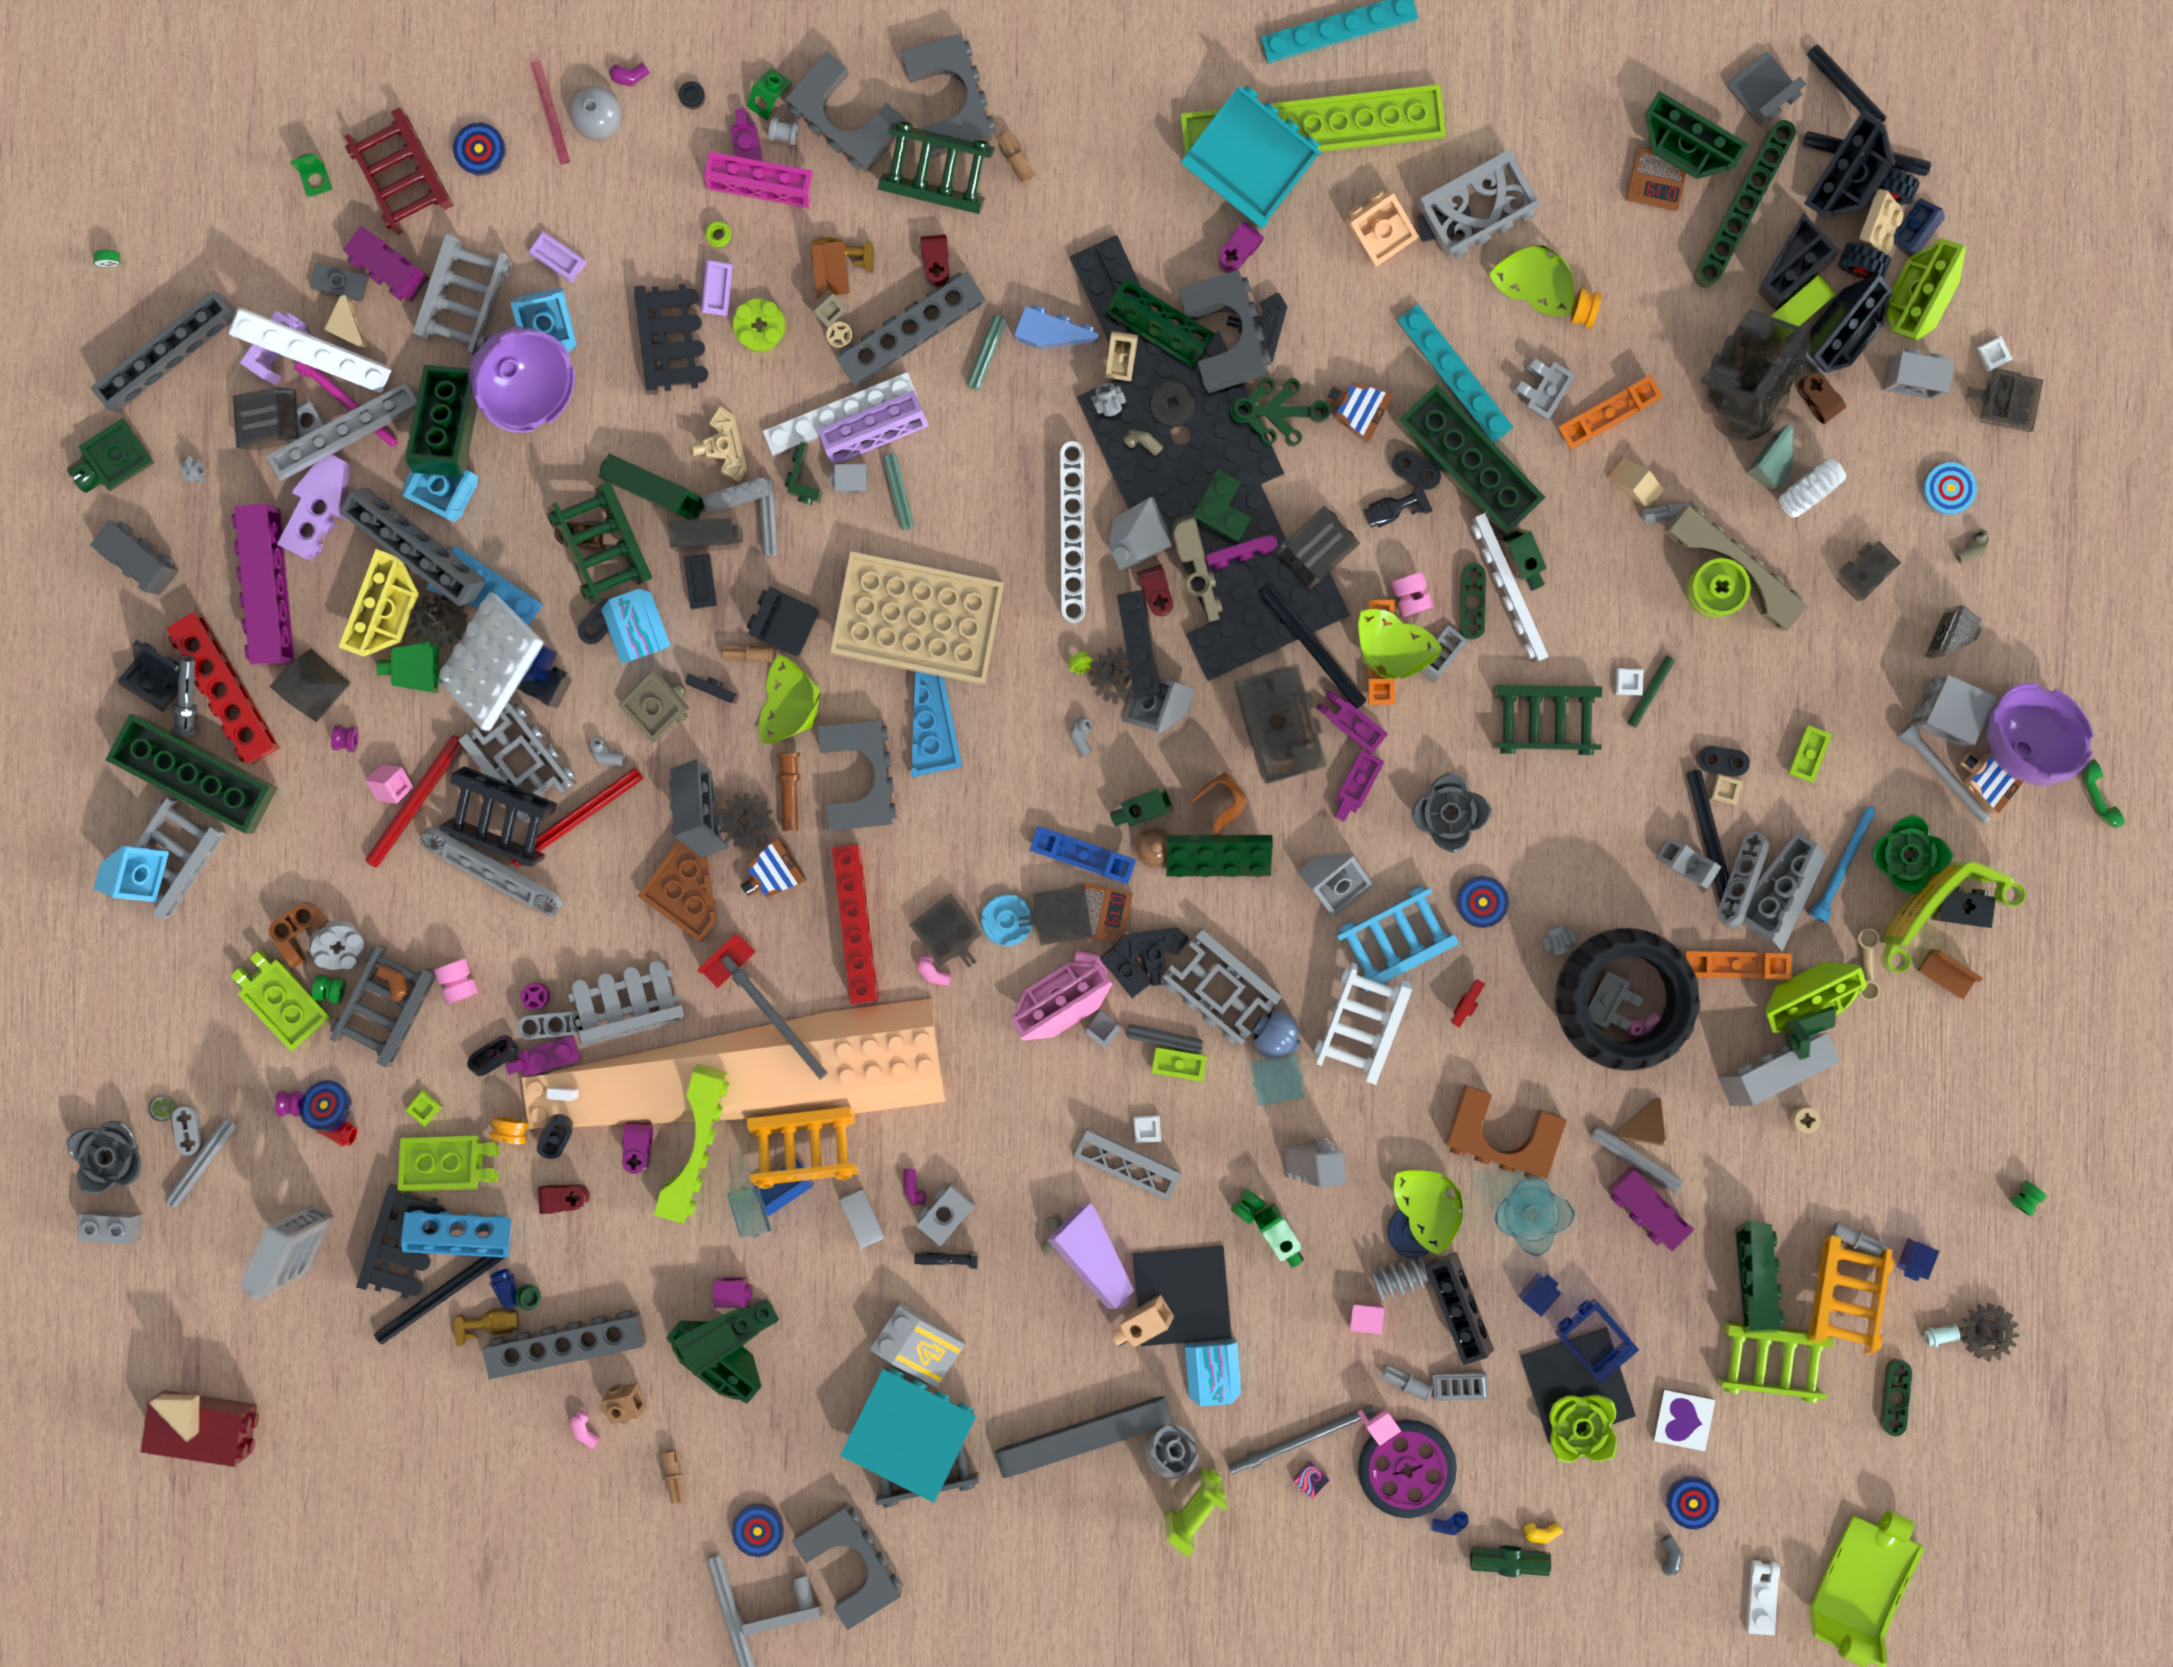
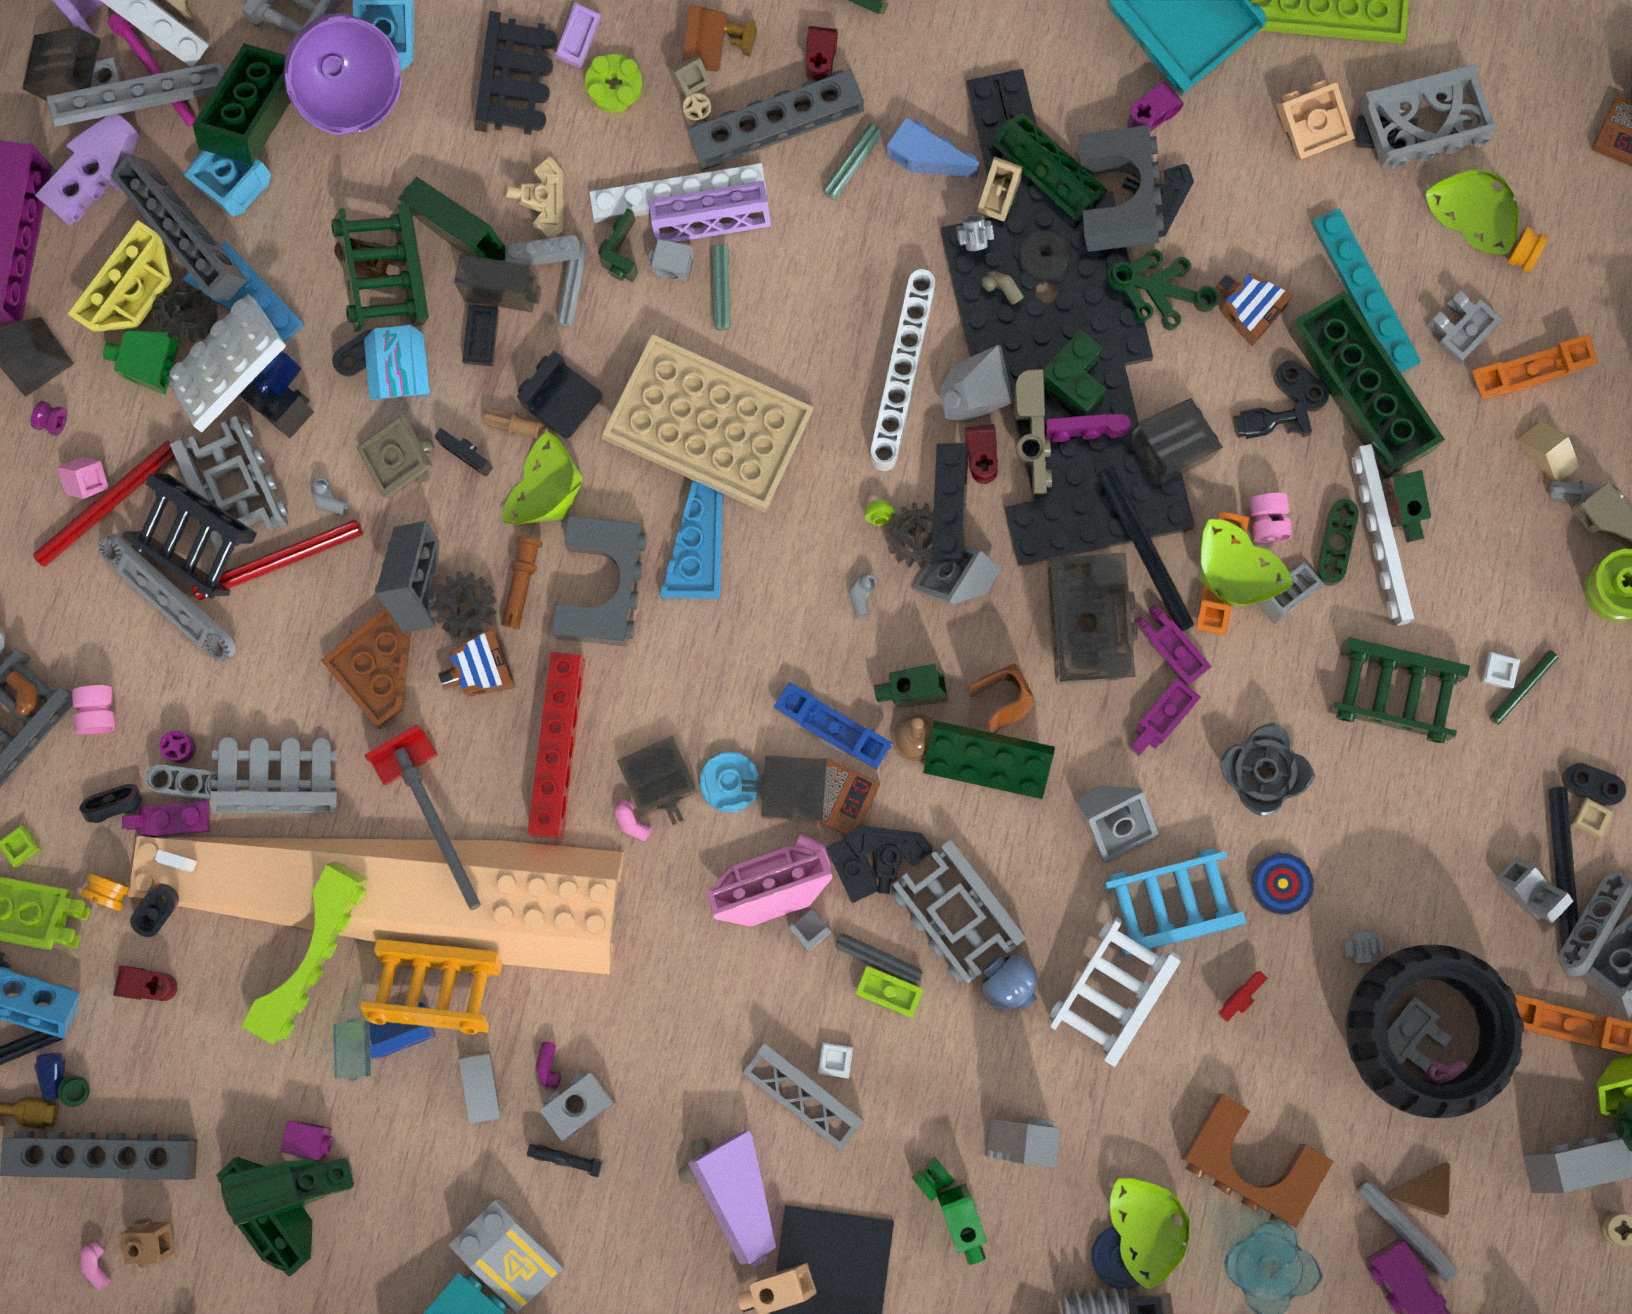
camera: 25 degrees right, 10 degrees down
(637, 1141) = (246, 942): magenta piece -> none
(1278, 1080) = (1000, 1038): clear light blue piece -> none

